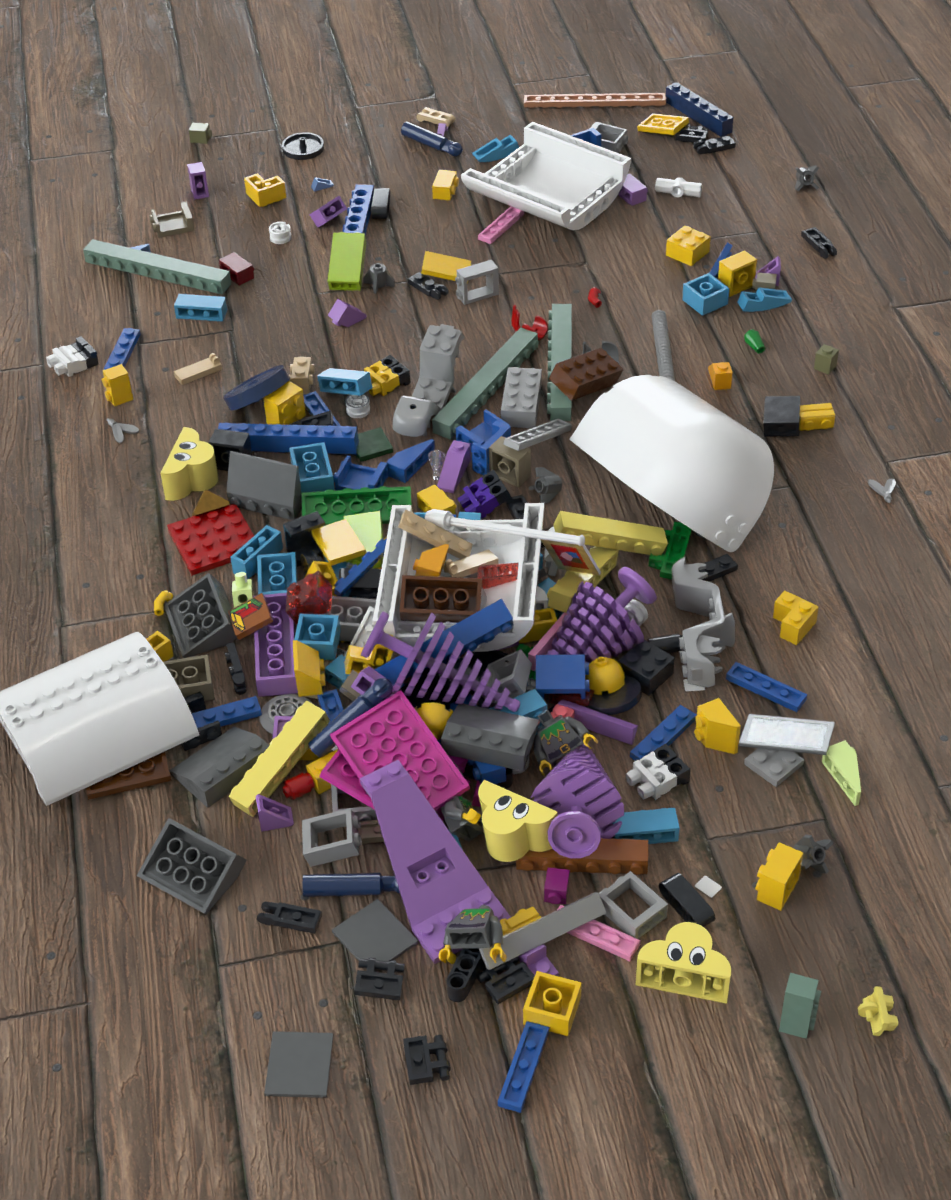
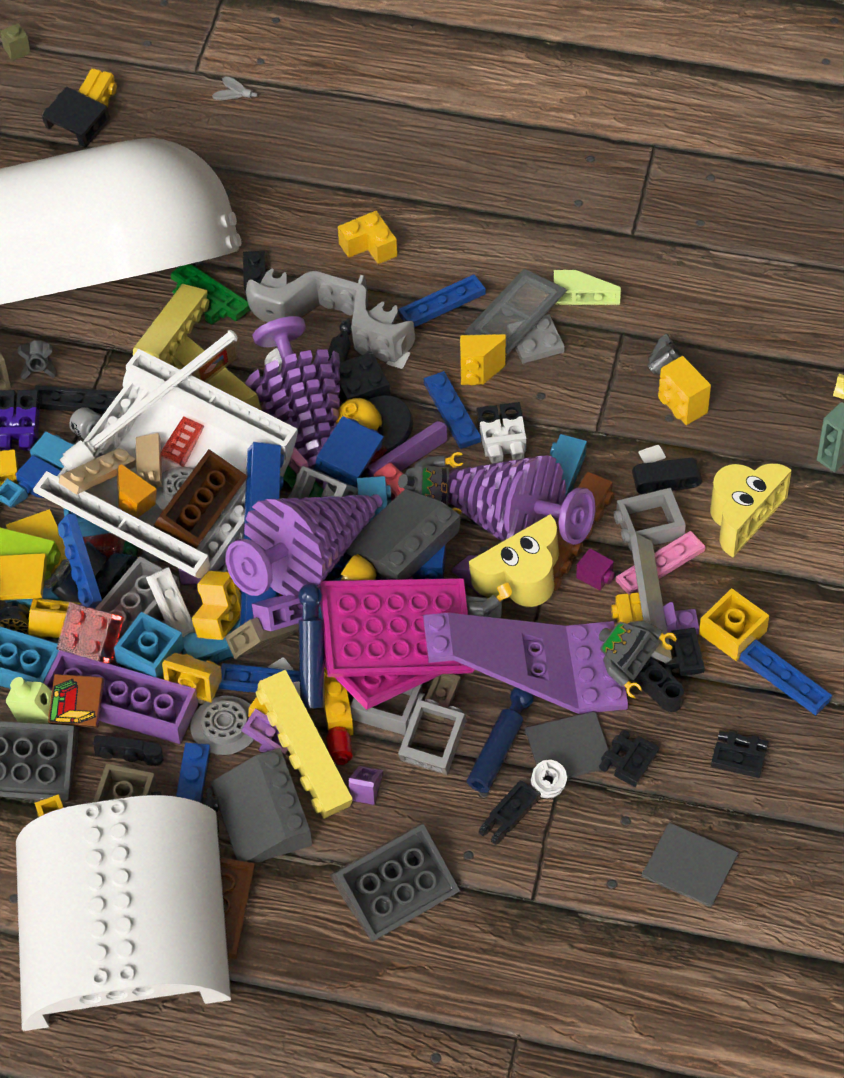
camera: 65 degrees left, 10 degrees up
(333, 937) = (553, 769): none -> white wheel

